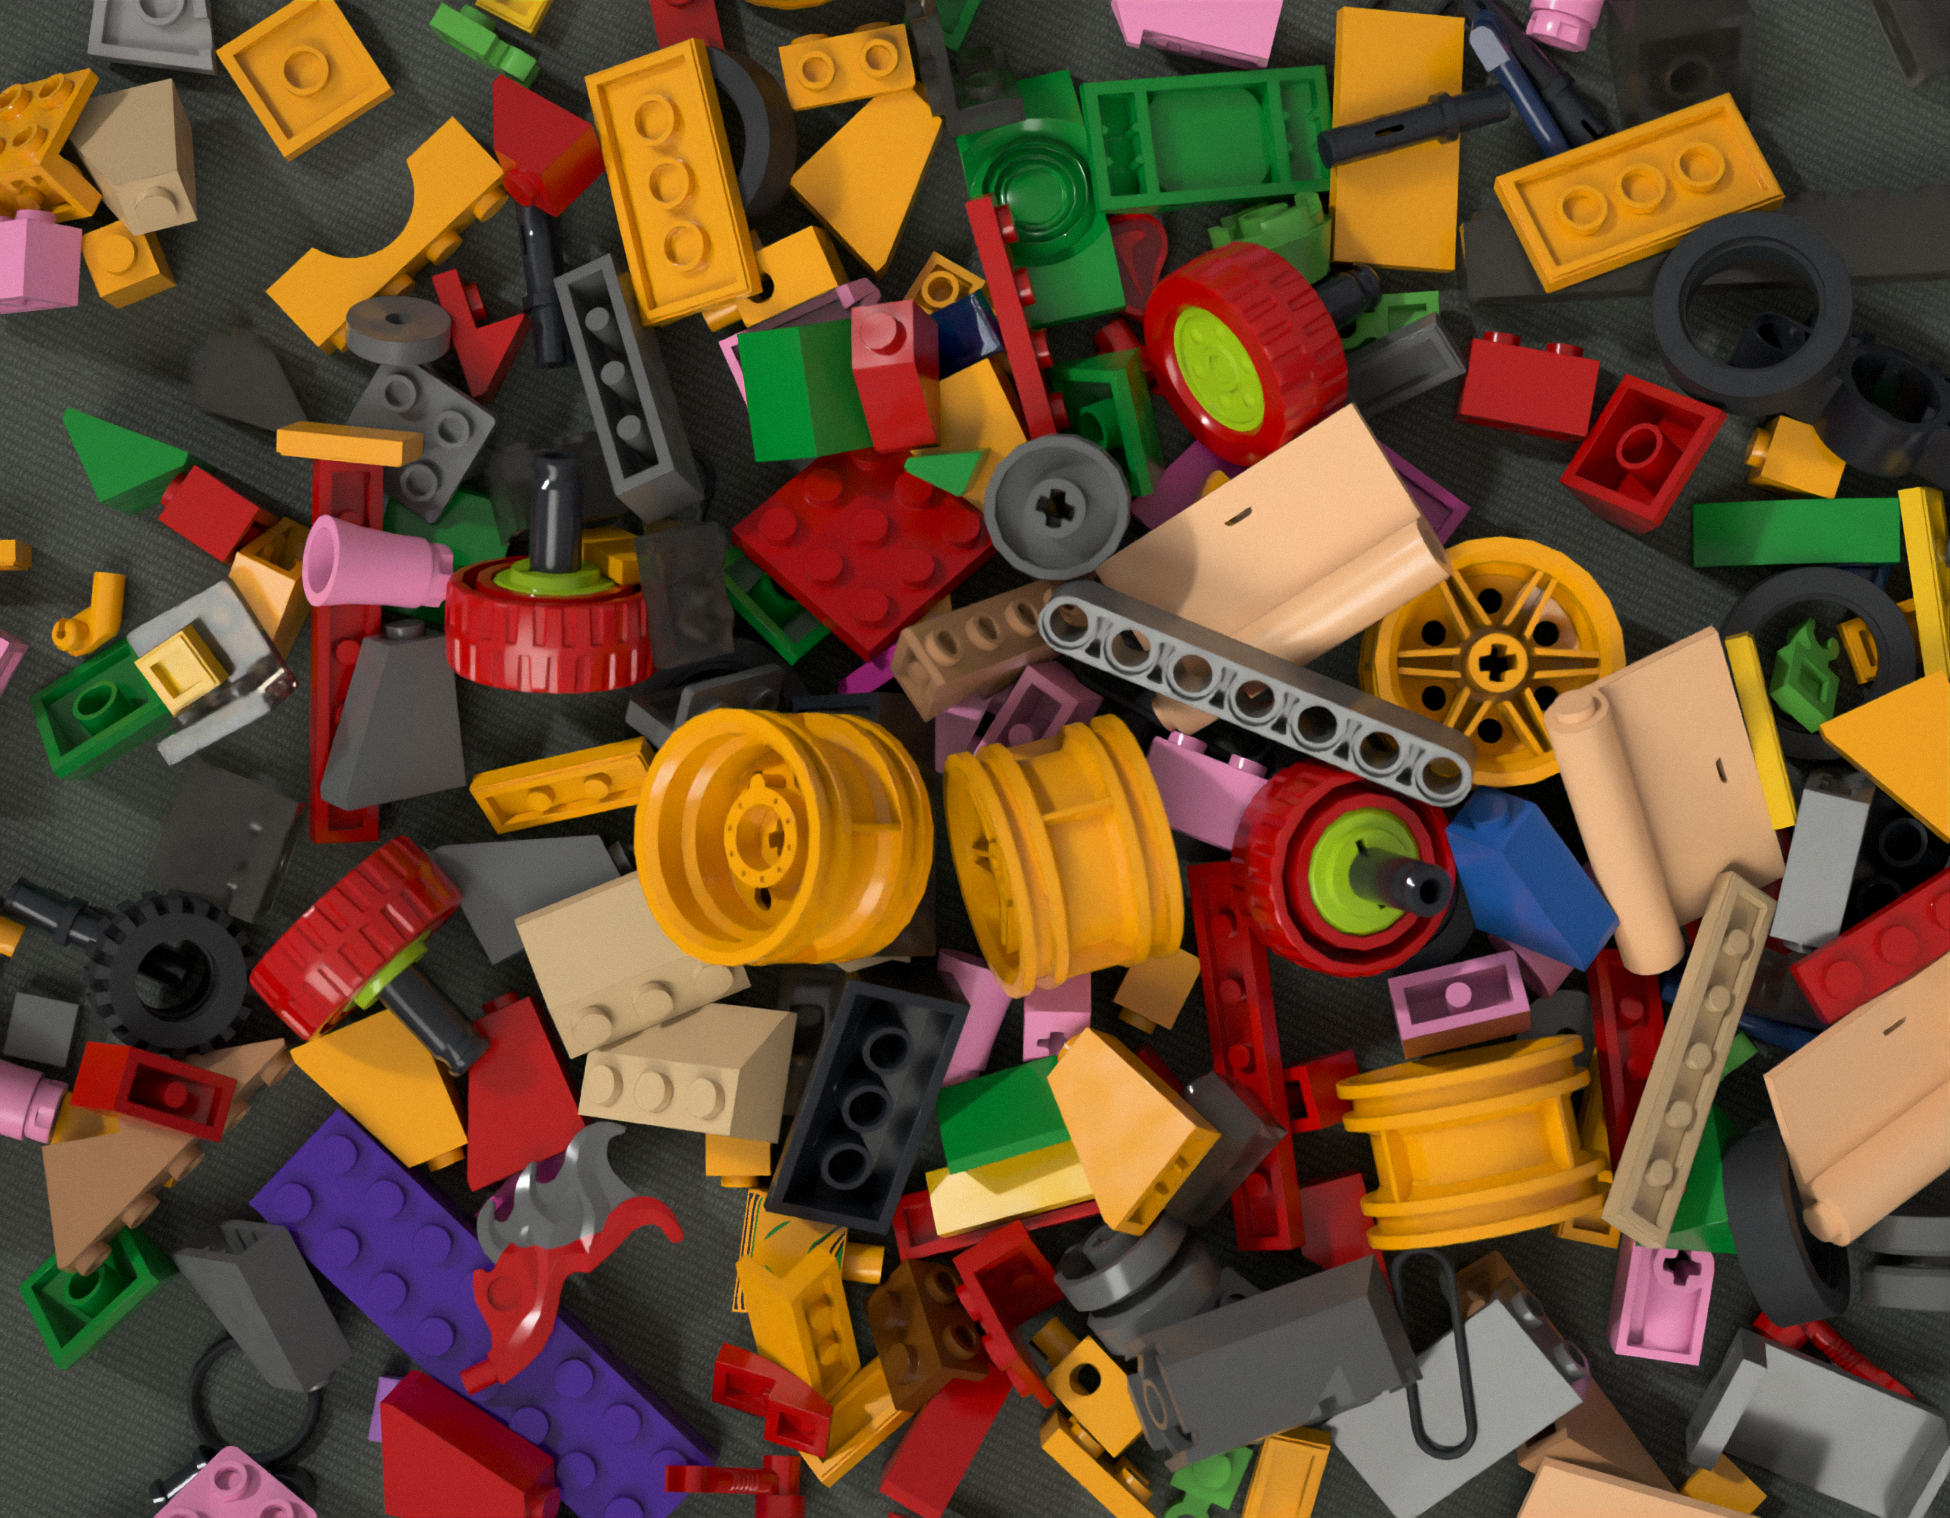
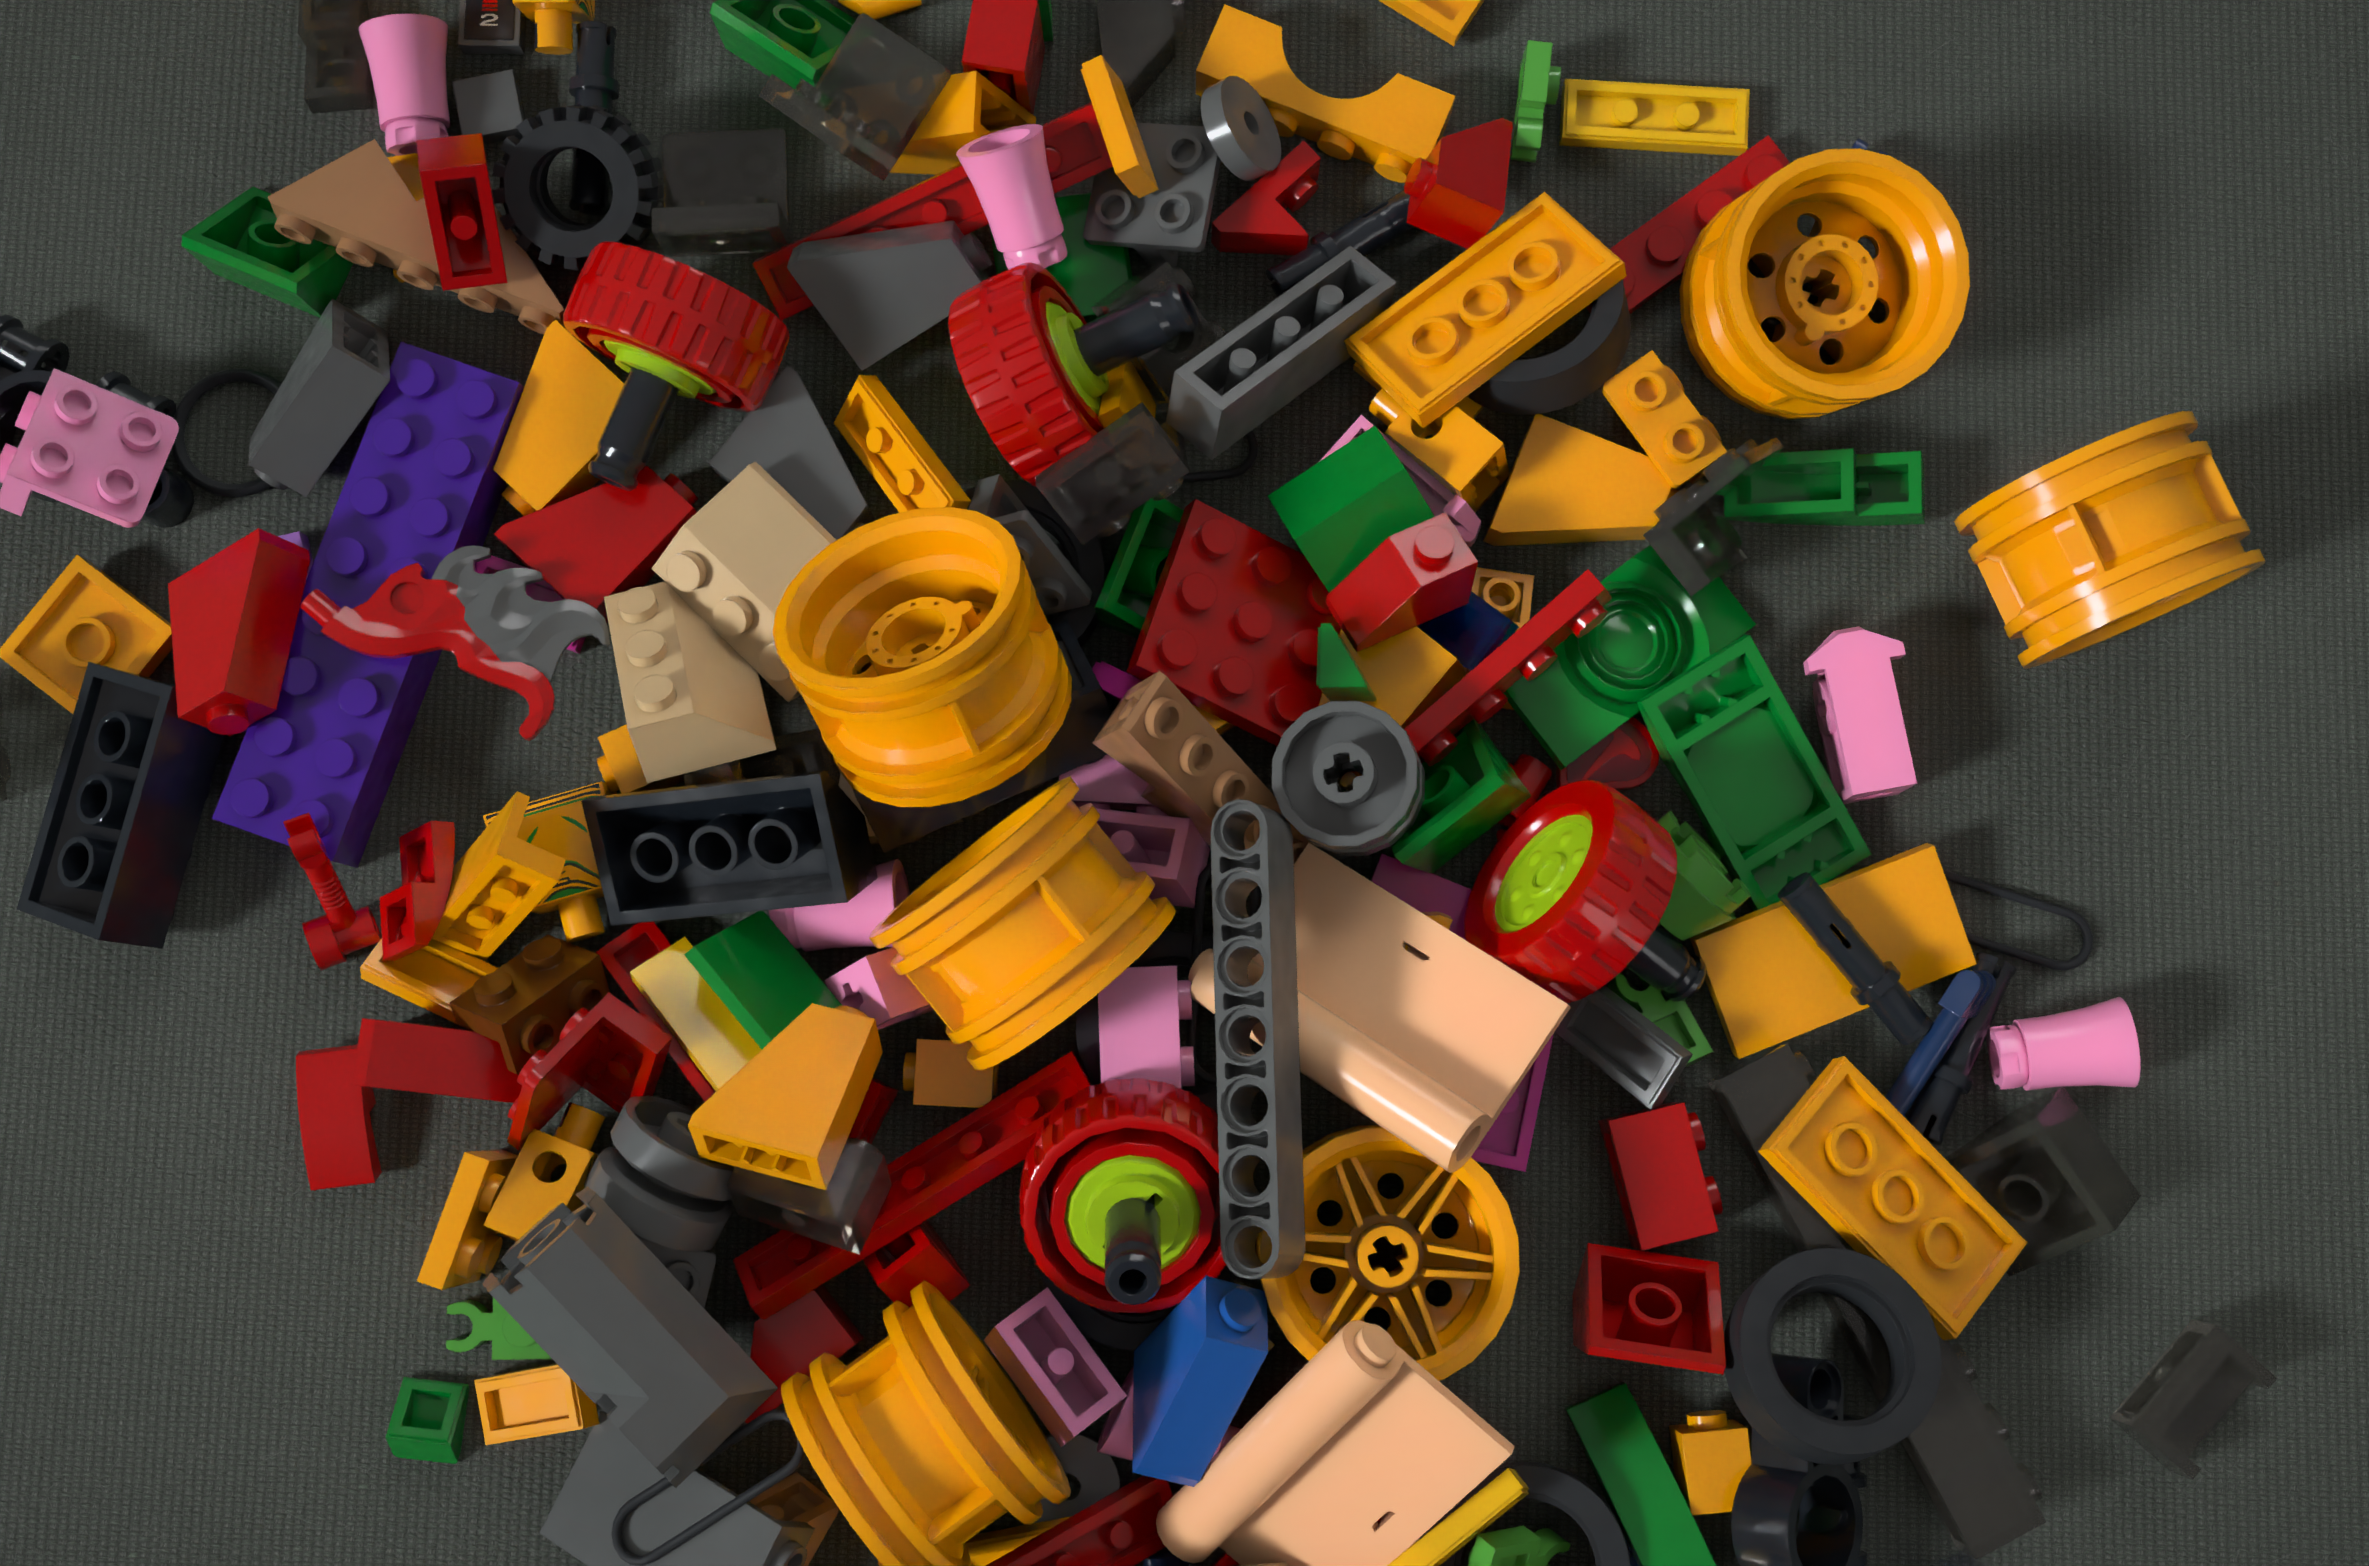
camera: 70 degrees right, 5 degrees down
(181, 669) = (852, 71): yellow tile -> none

